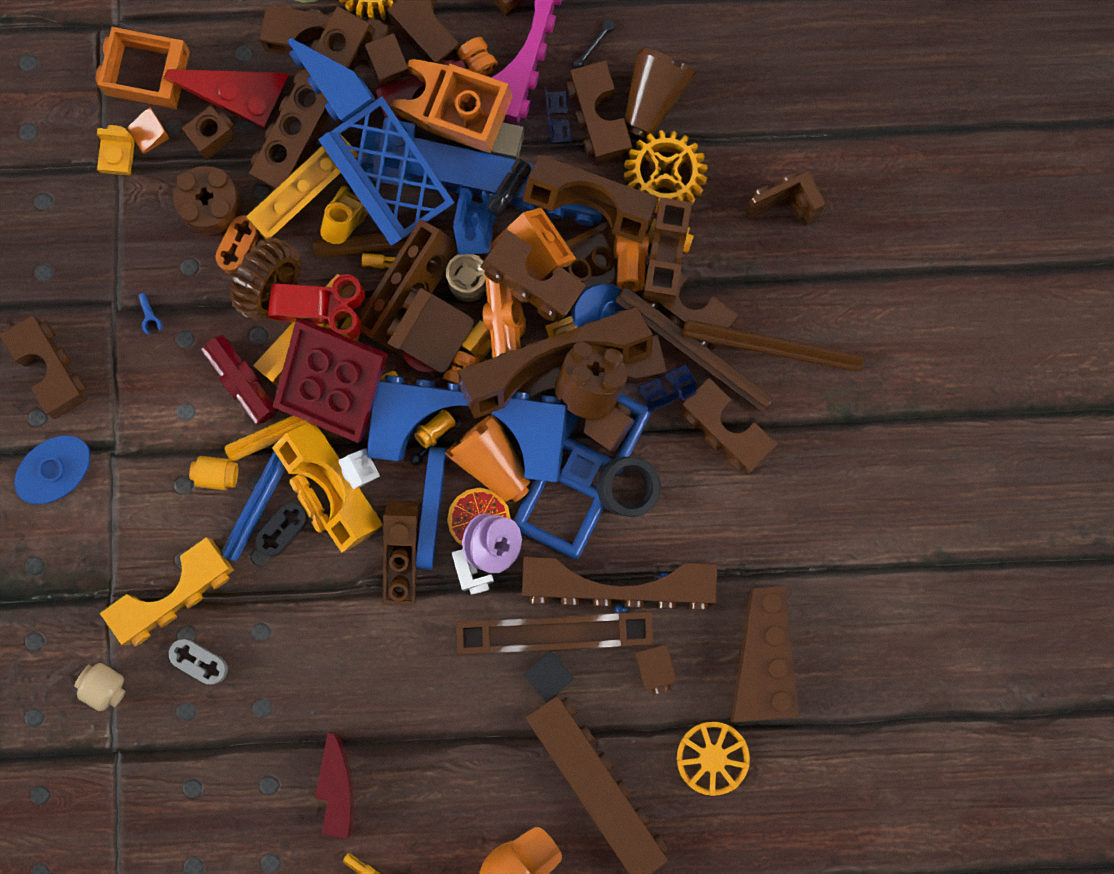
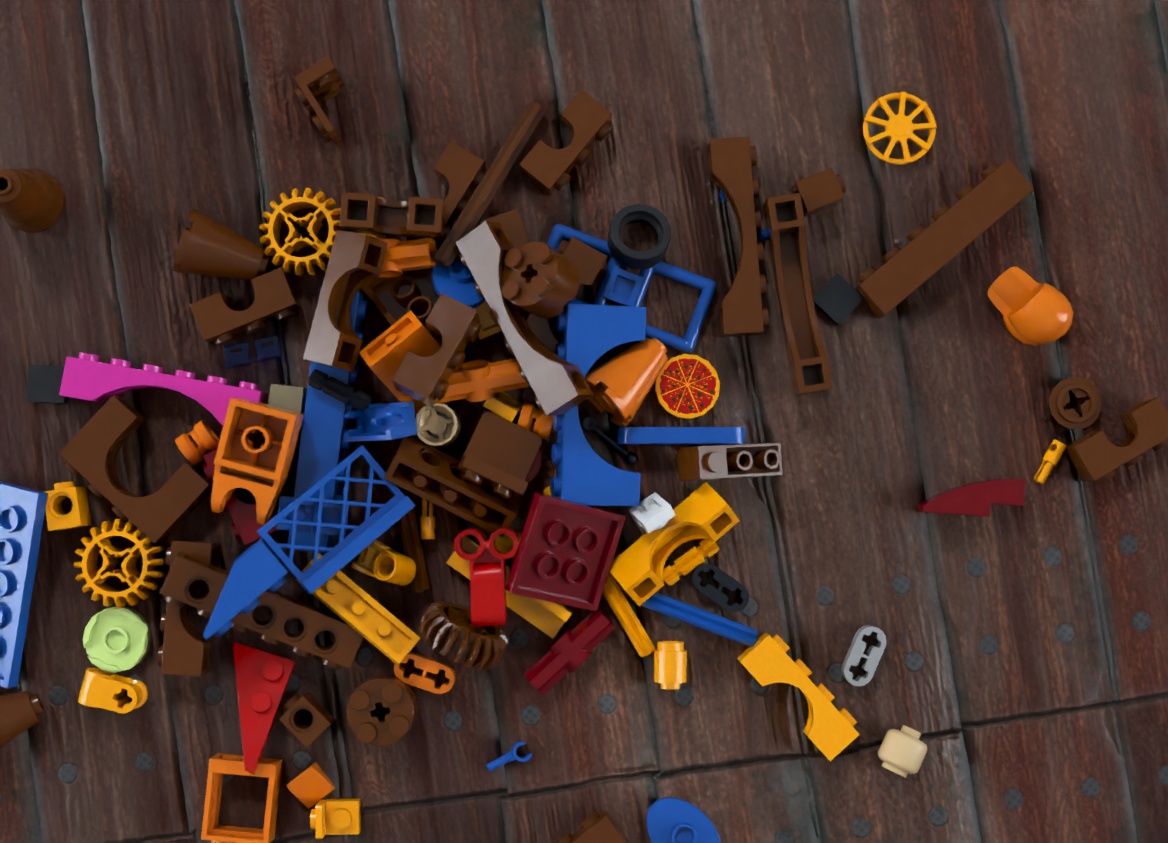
camera: 95 degrees left, 5 degrees up
(385, 58) = (210, 536): reddish brown brick -> none
(436, 427) = (601, 441): light orange pin -> none
(465, 575) = (739, 392): white bracket -> none
(491, 542) = (713, 368): lavender piece -> none
(608, 26) = (149, 309): black hinge -> none
(683, 393) = (535, 189): clear blue piece -> none
(766, 665) = (802, 82): reddish brown wedge -> none
(772, 345) = (479, 103): reddish brown axle -> none

